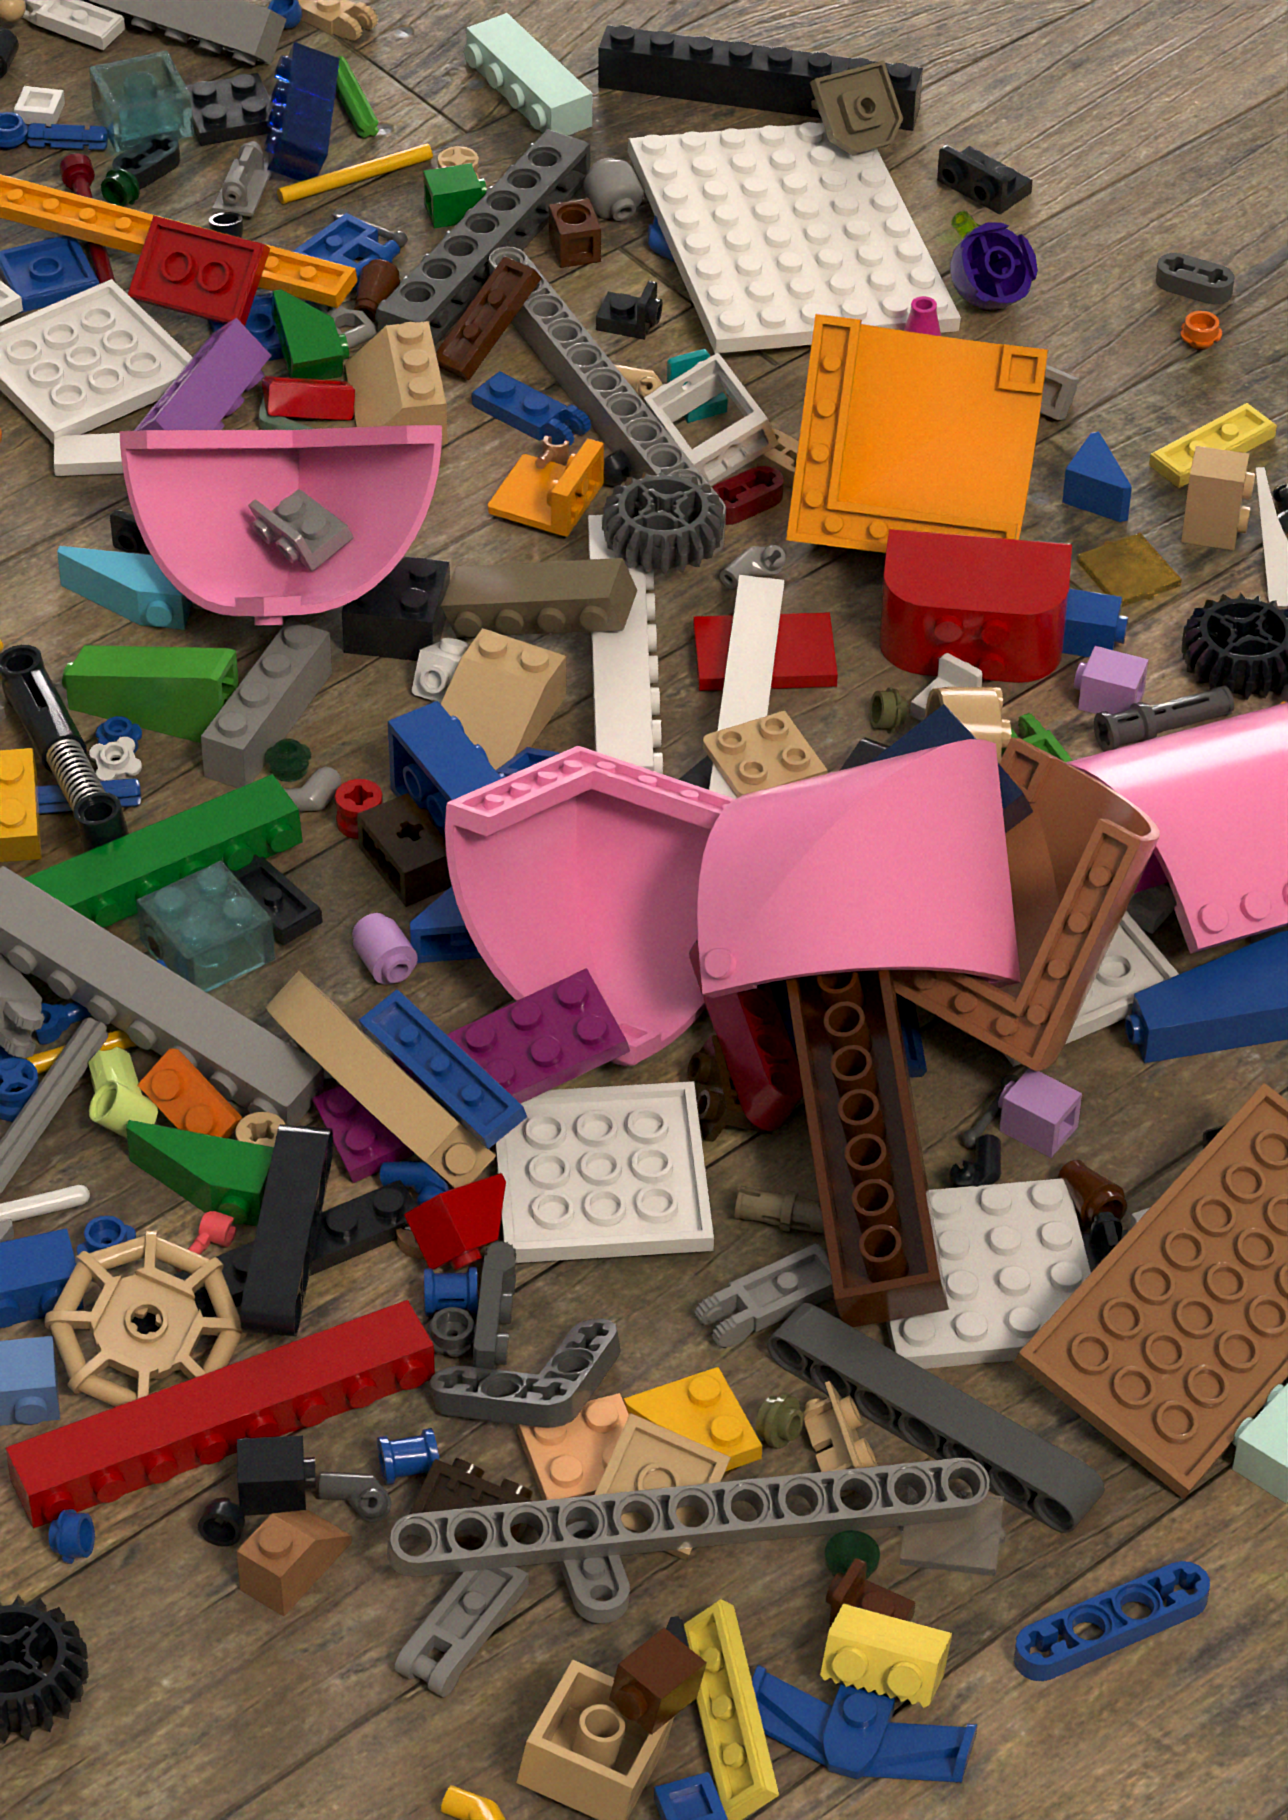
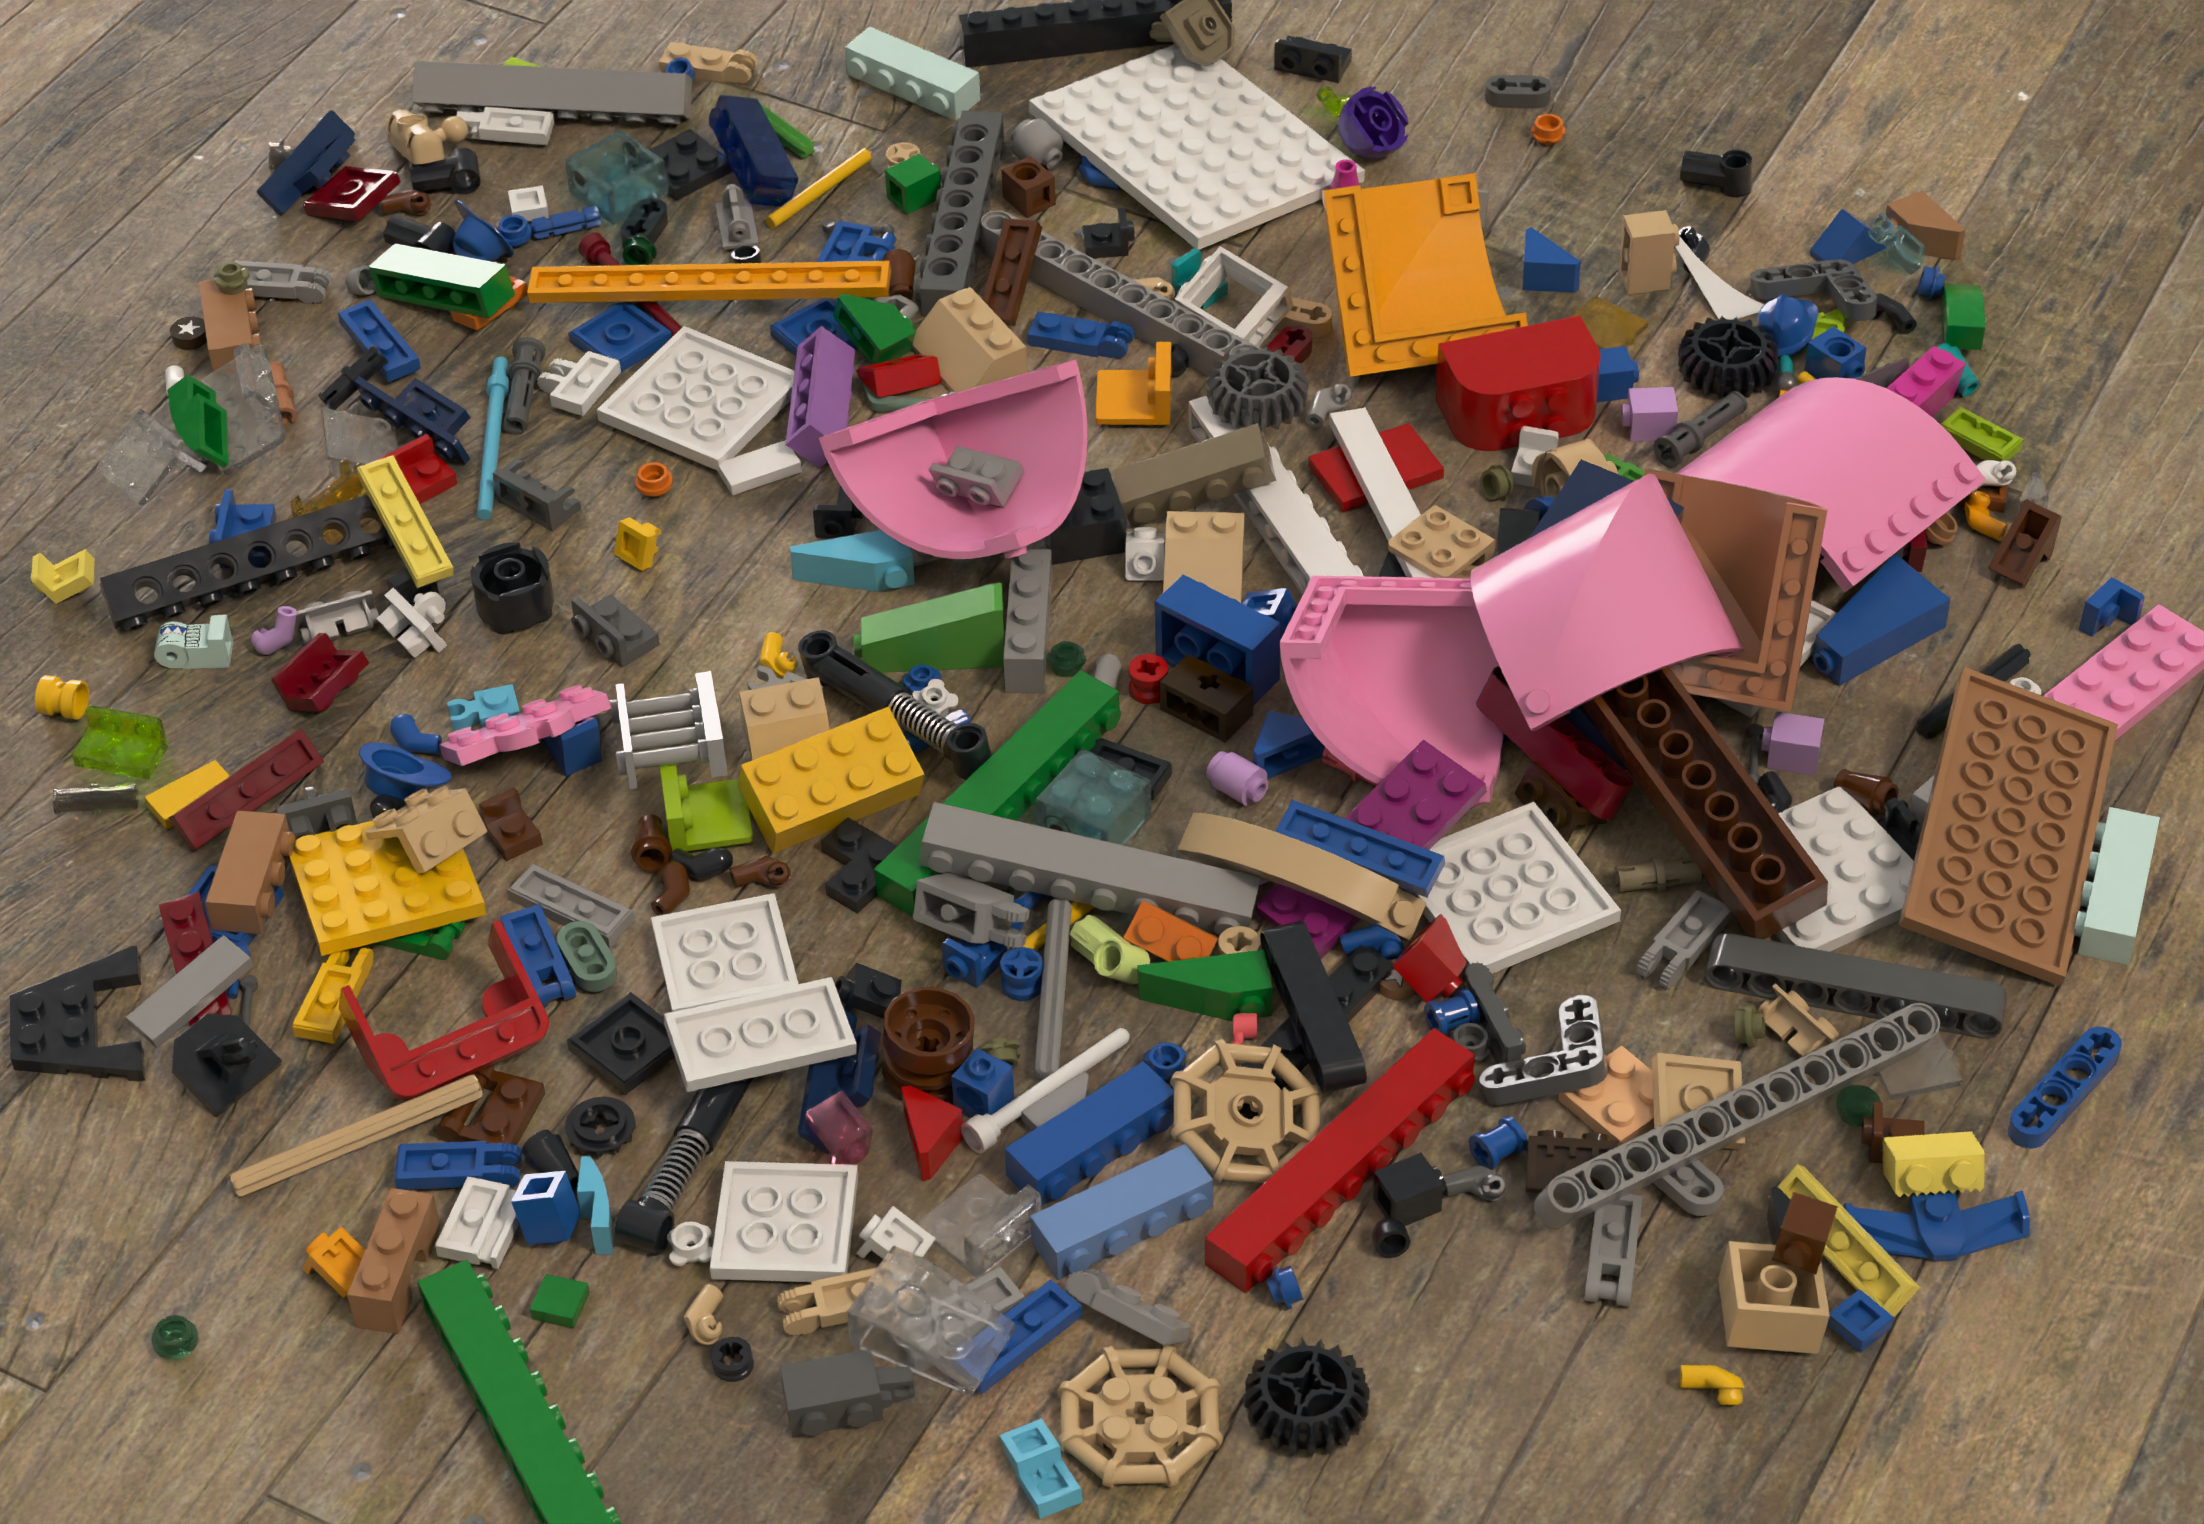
camera: 20 degrees left, 0 degrees up
(198, 271) = (759, 299): red tile -> none
(288, 1557) = (1458, 1249): medium nougat slope -> none
(553, 453) = (1119, 363): medium nougat hand -> none
(702, 1411) = (1689, 1035): yellow wing -> none
(1235, 431) = (1607, 213): light yellow tile -> none

